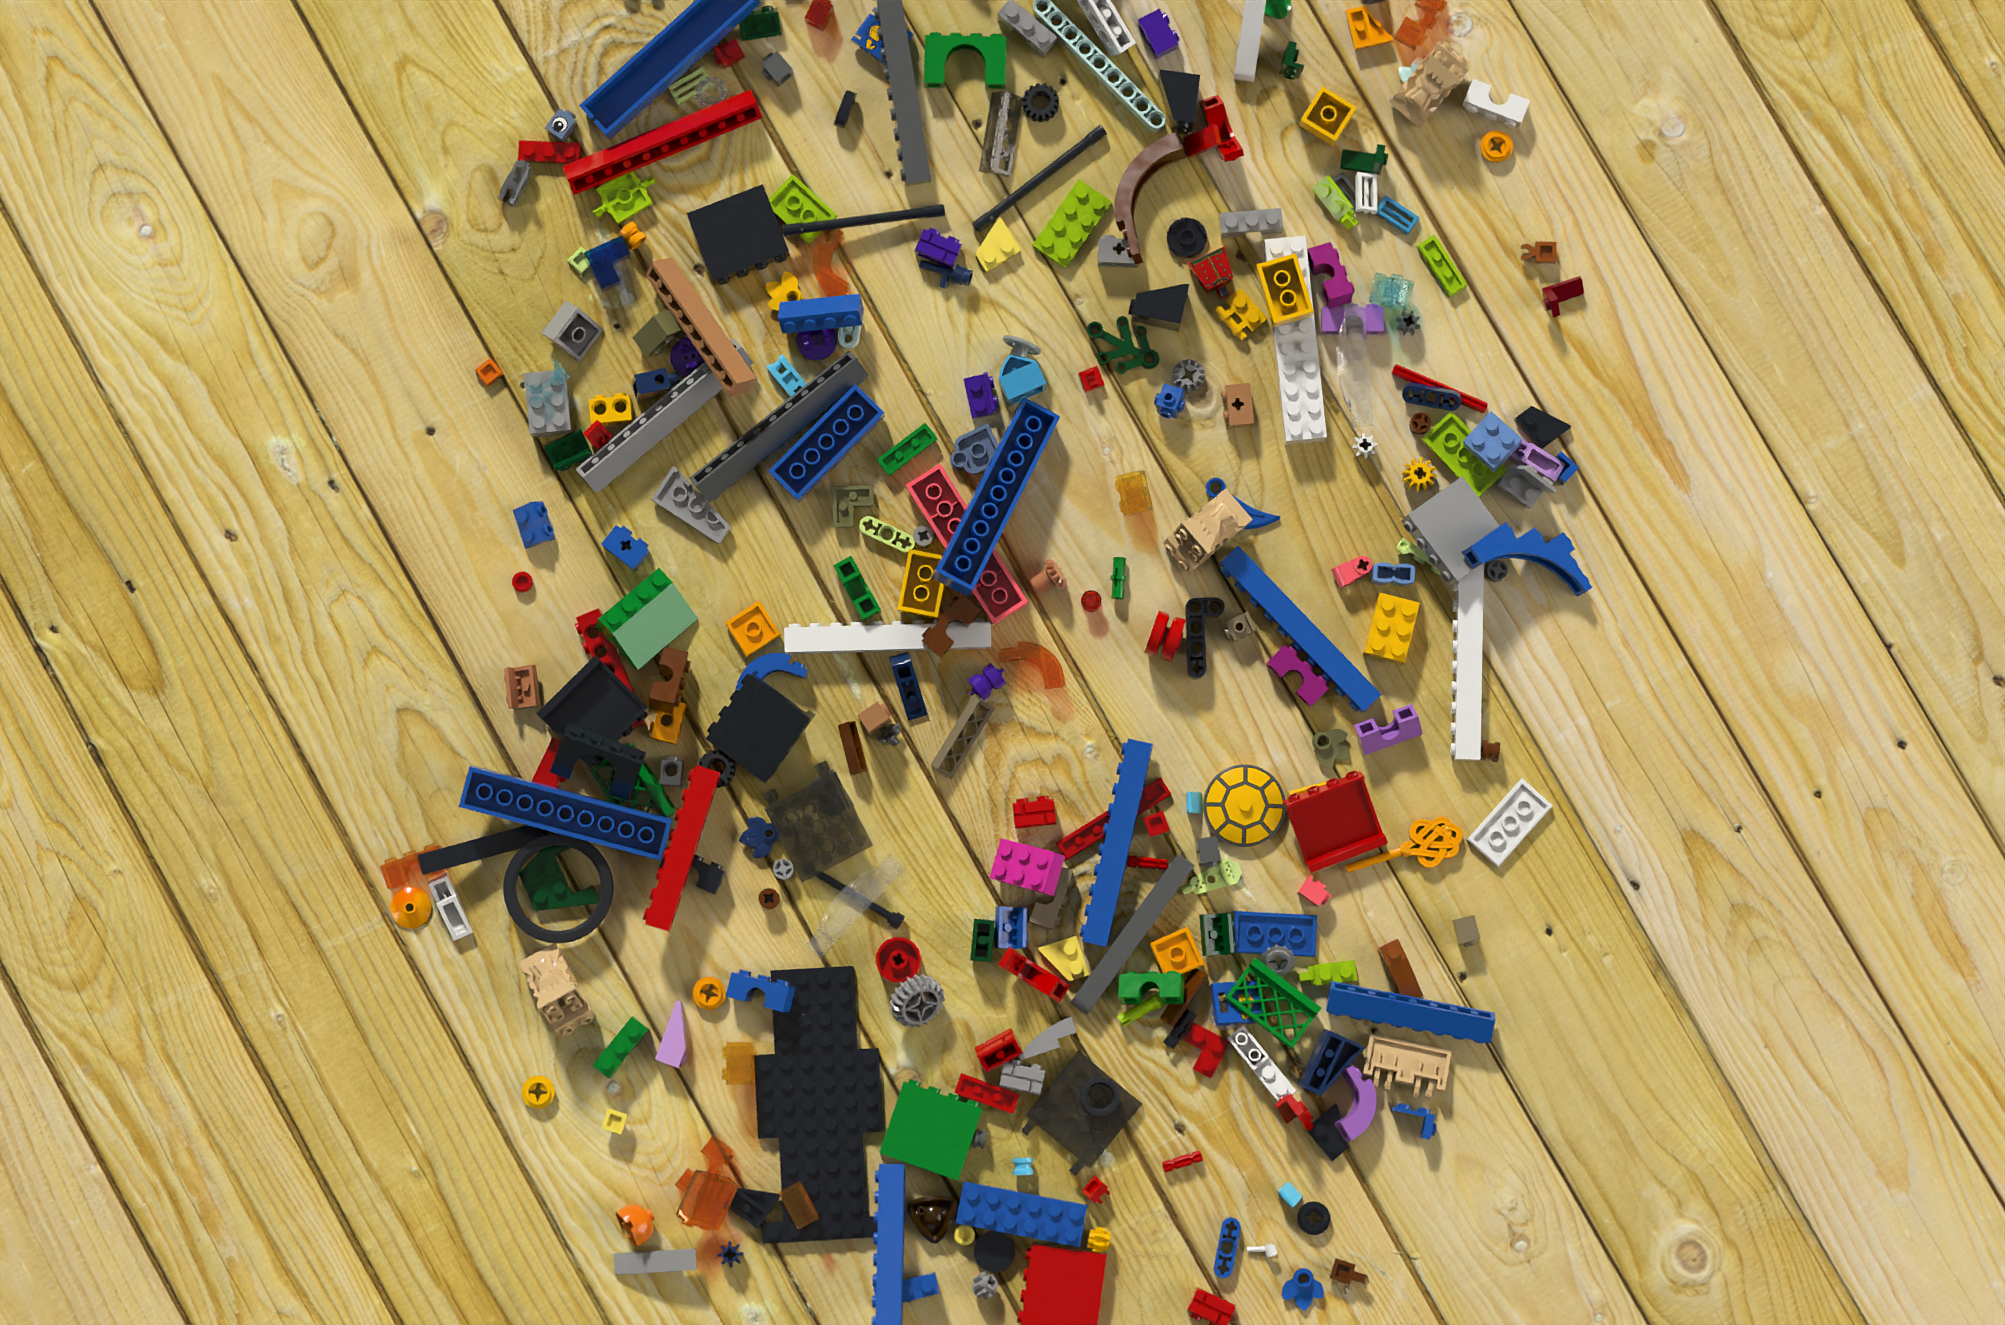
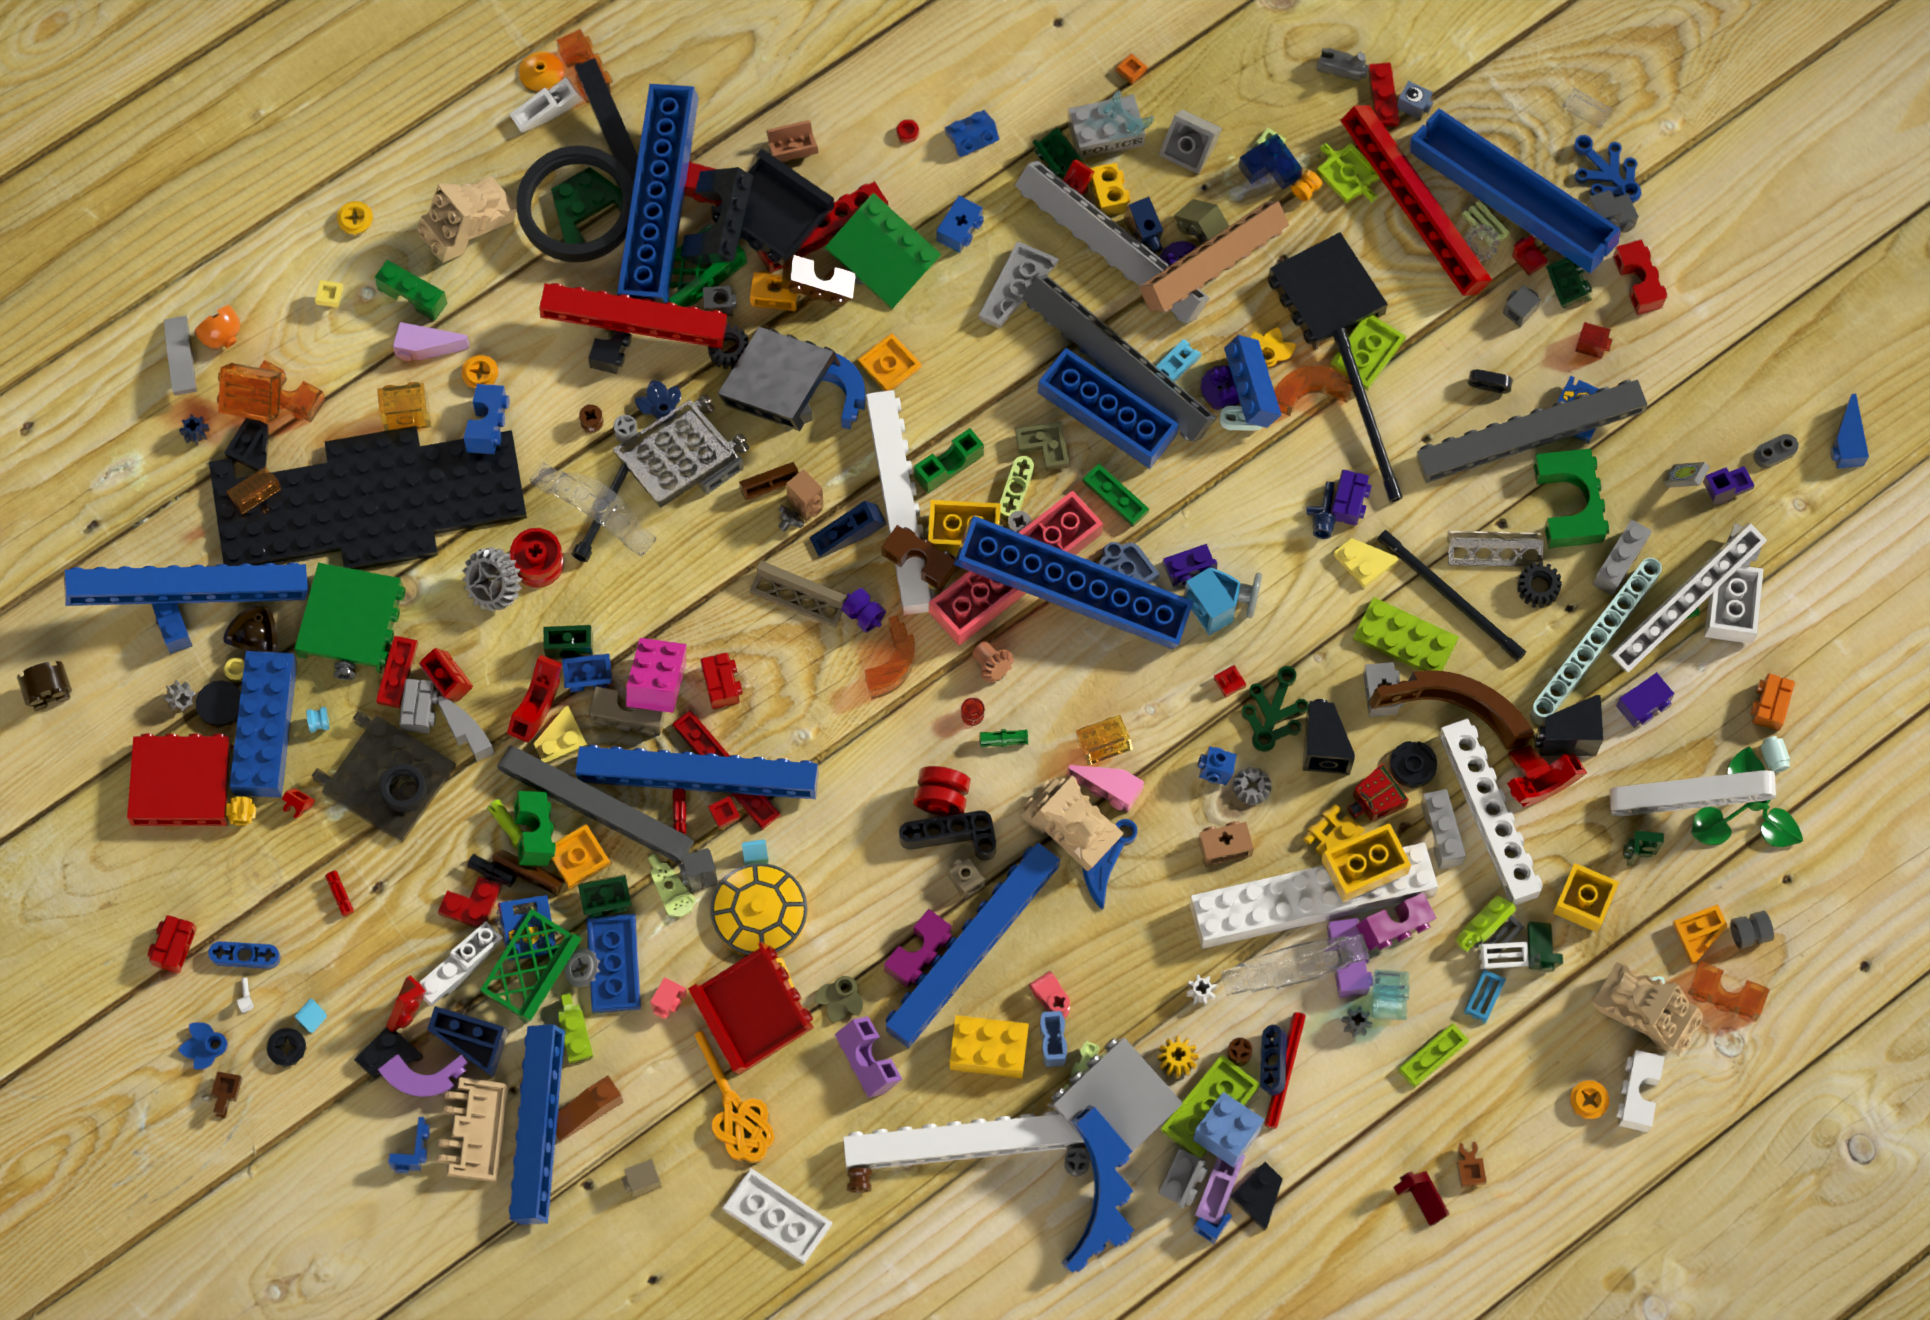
camera: 80 degrees right, 15 degrees down
(1174, 491) = (1112, 784): none -> bright pink slope
(1309, 159) = (1516, 890): none -> white brick

